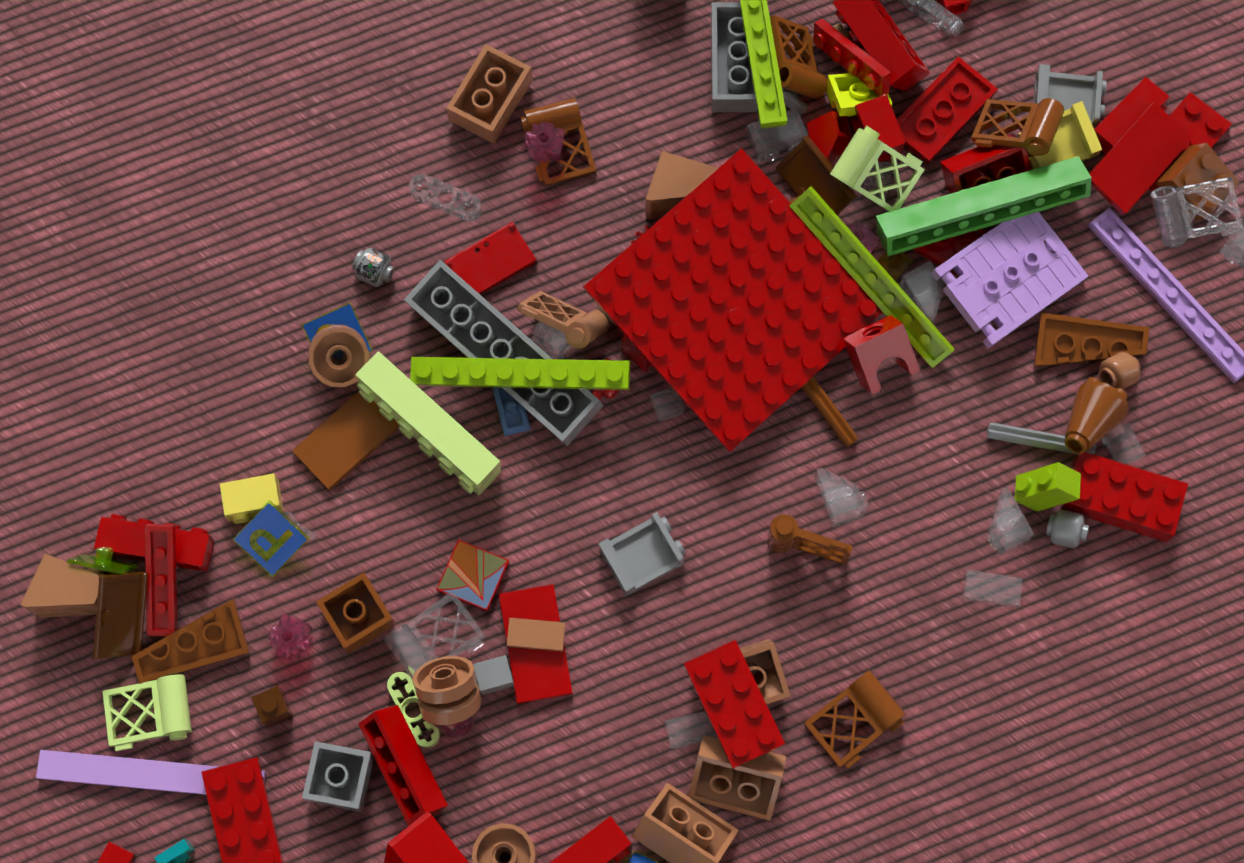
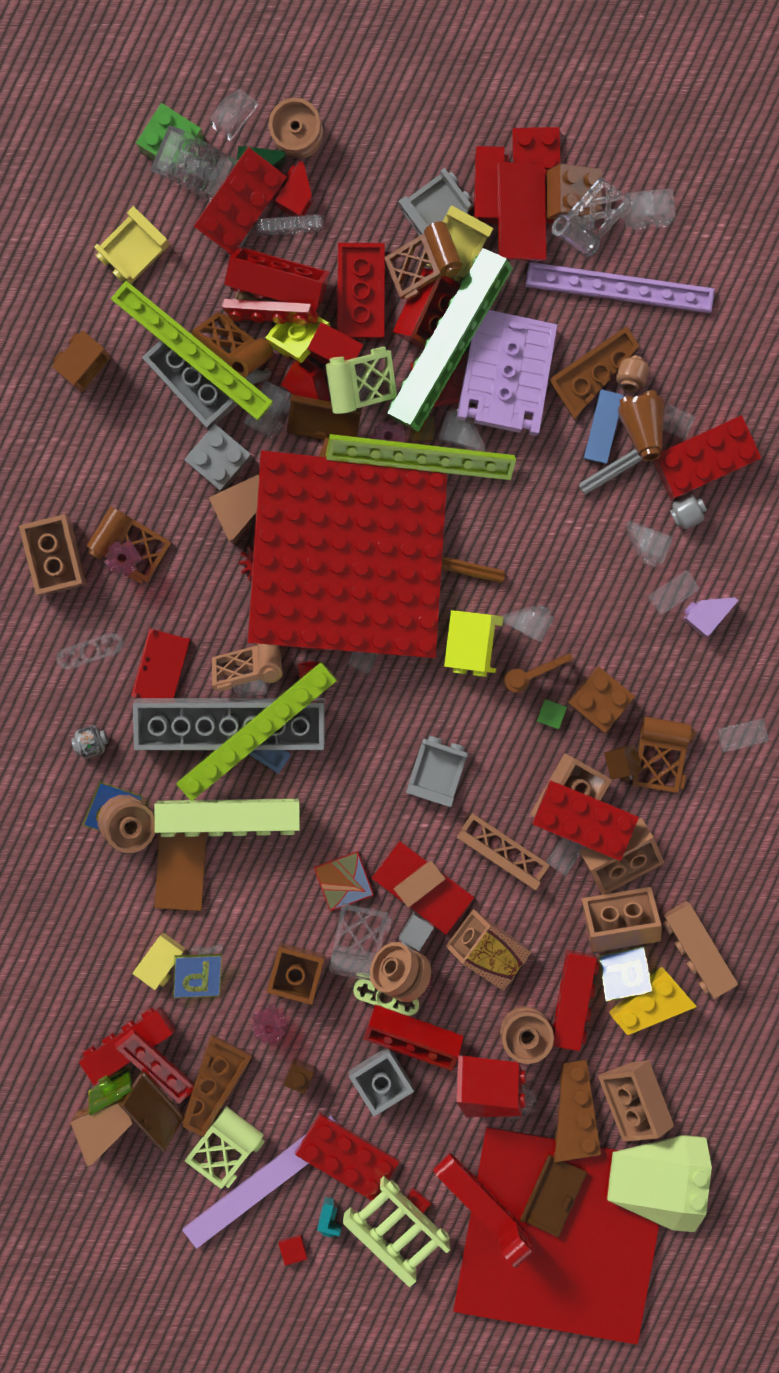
camera: 50 degrees left, 15 degrees up
(541, 750) = (488, 950): none -> slope
(625, 677) = (497, 858): none -> nougat fence
(700, 134) = (218, 458): none -> light grey brick
(773, 467) = (471, 642): none -> neon yellow panel
(788, 596) = (551, 714): none -> bright green tile
(814, 692) = (623, 762): none -> reddish brown brick
(843, 619) = (600, 699): none -> dark orange brick
(875, 344) = (465, 502): red piece -> none
(944, 769) = (742, 735): none -> clear tile
(1008, 631) = (707, 614): none -> lavender slope
(1047, 487) = (655, 498): lime brick -> none
(1051, 395) = (603, 427): none -> medium blue tile

